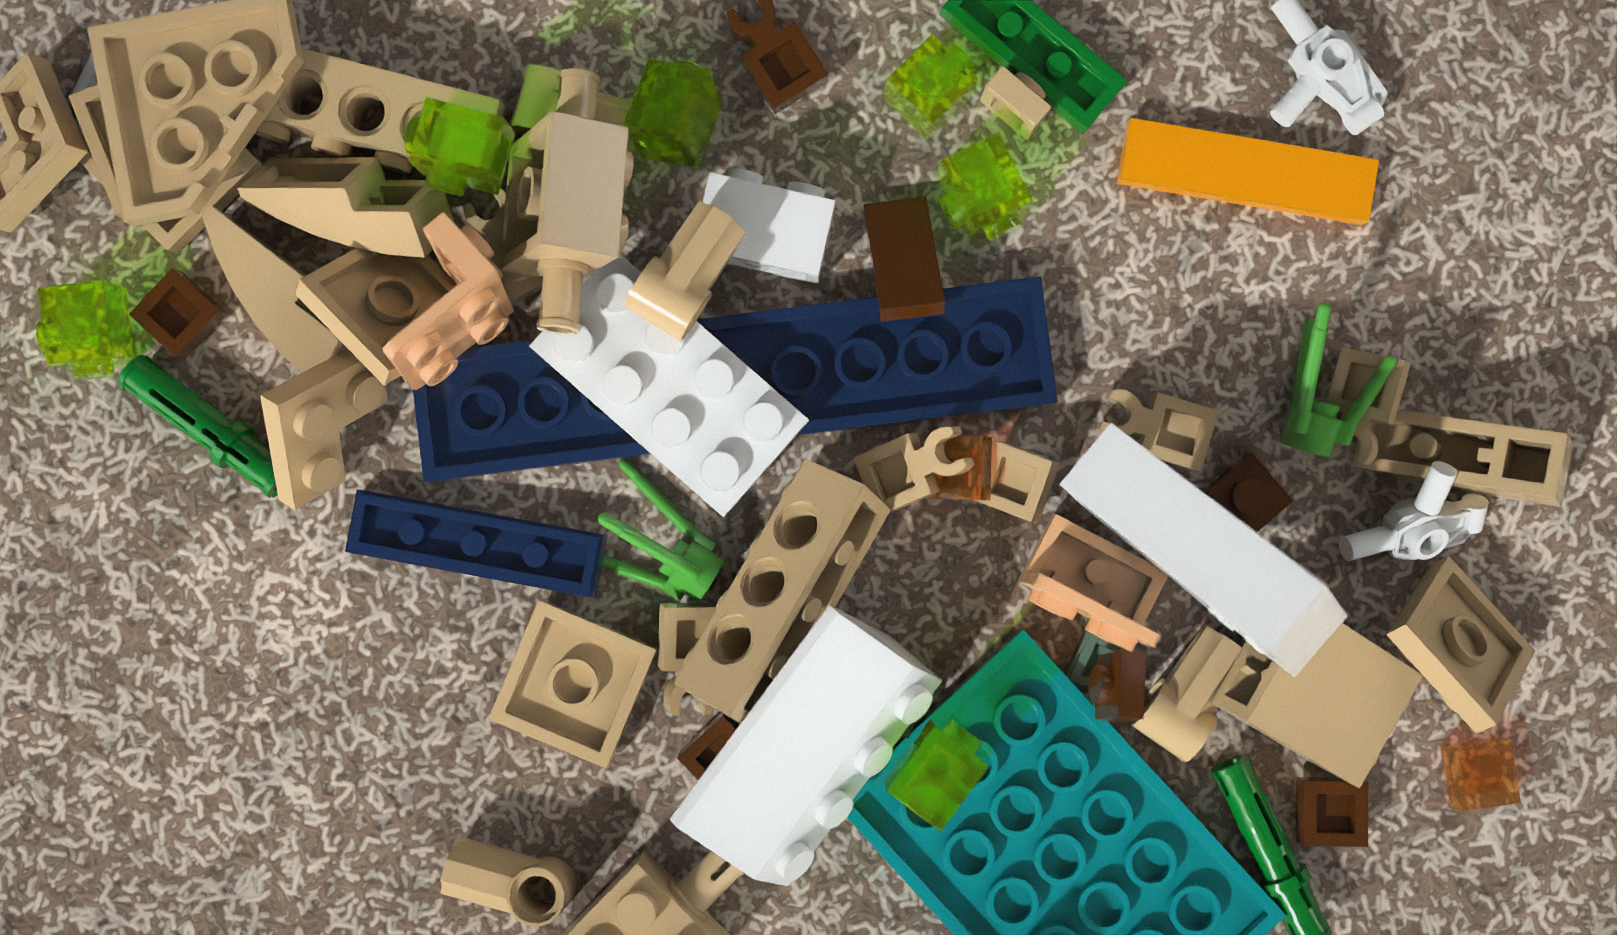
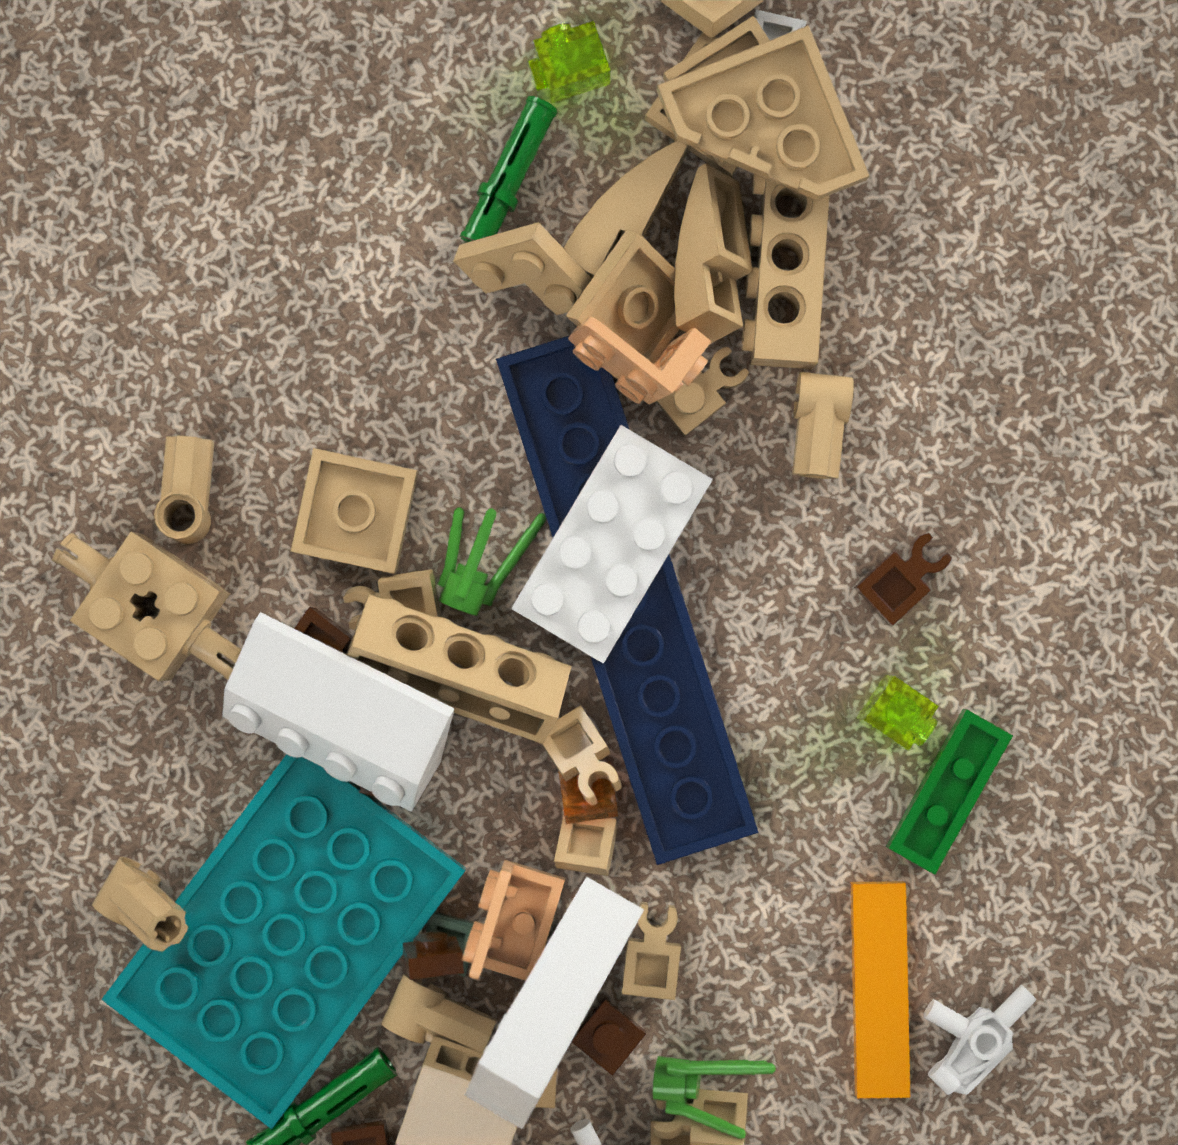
camera: 80 degrees right, 0 degrees up
(178, 314) = (595, 132): reddish brown plate -> none
(459, 147) = (769, 339): clear neon green brick -> none
(476, 543) = (453, 410): dark blue tile -> none
(566, 200) = (743, 433): tan brick -> none
(673, 112) = (836, 505): clear neon green brick -> none
(677, 285) = (692, 538): tan piece -> none
(782, 226) = (757, 596): white brick -> none
(904, 259) = (751, 716): reddish brown tile -> none
(937, 772) = (336, 820): clear neon green brick -> none
(983, 190) = (820, 771): clear neon green brick -> none
(1016, 101) = (901, 786): tan plate -> none

